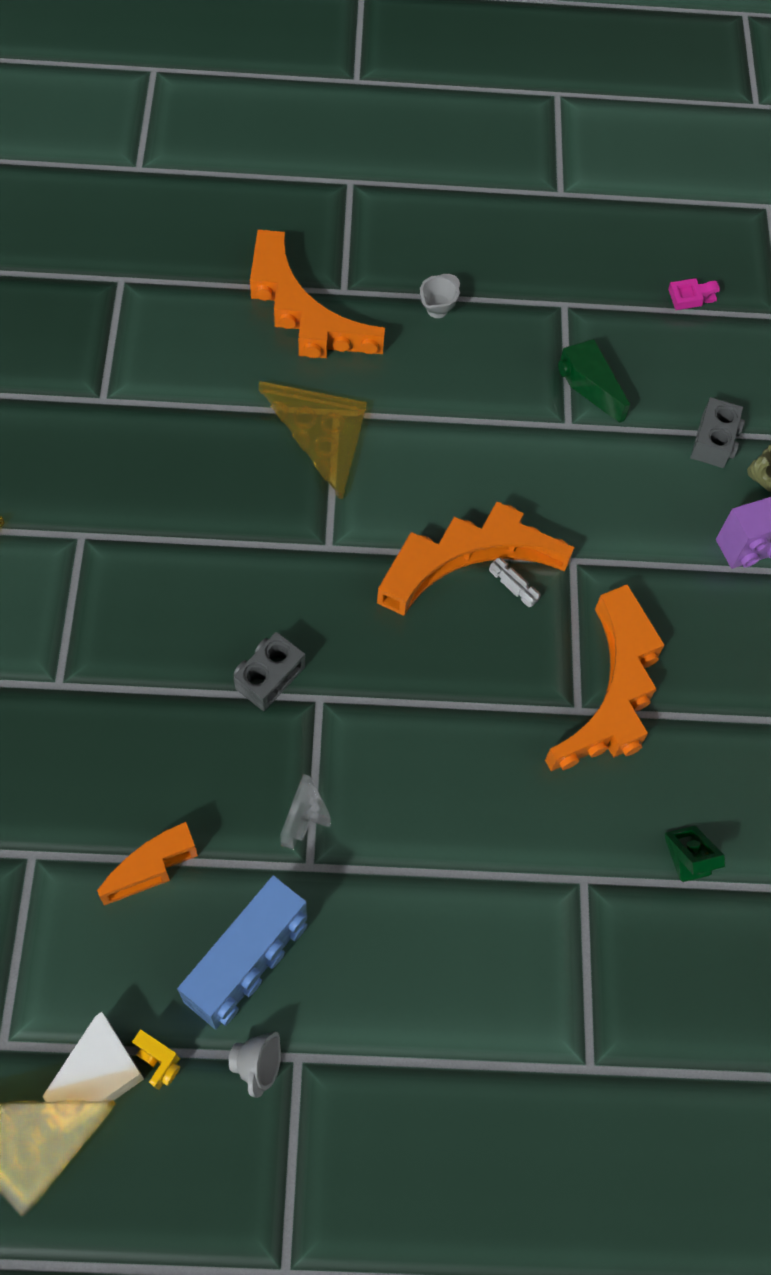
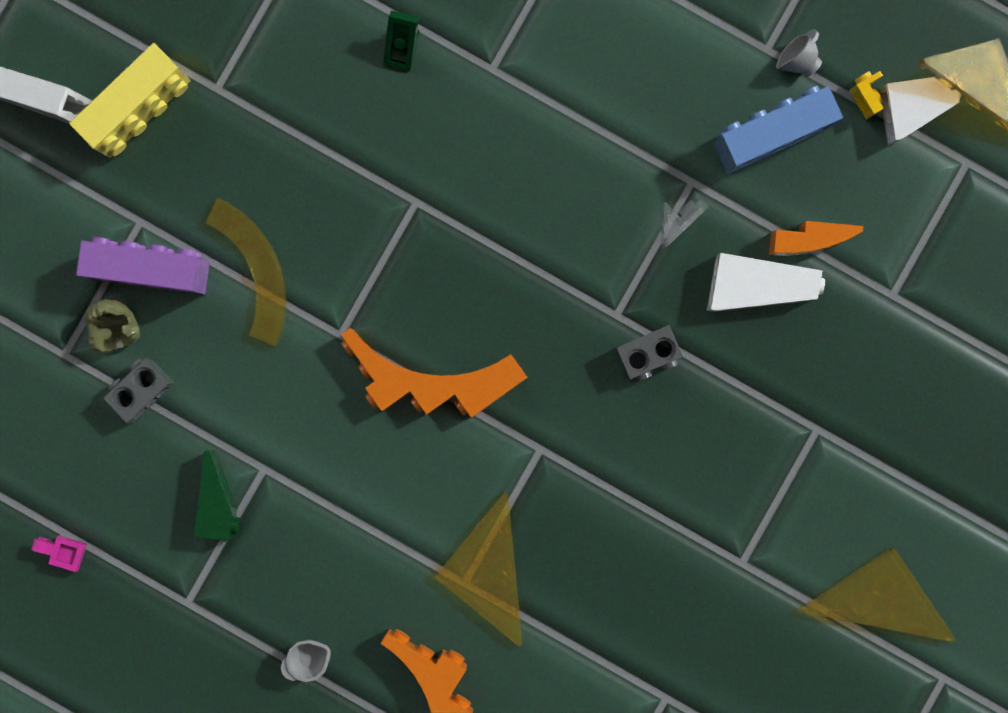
camera: 145 degrees left, 25 degrees up
(183, 791) = (752, 282): none -> white slope
(514, 582) = (403, 336): light grey axle -> none
(632, 648) = (398, 172): orange arch -> none
(685, 587) = (263, 266): none -> clear yellow tile

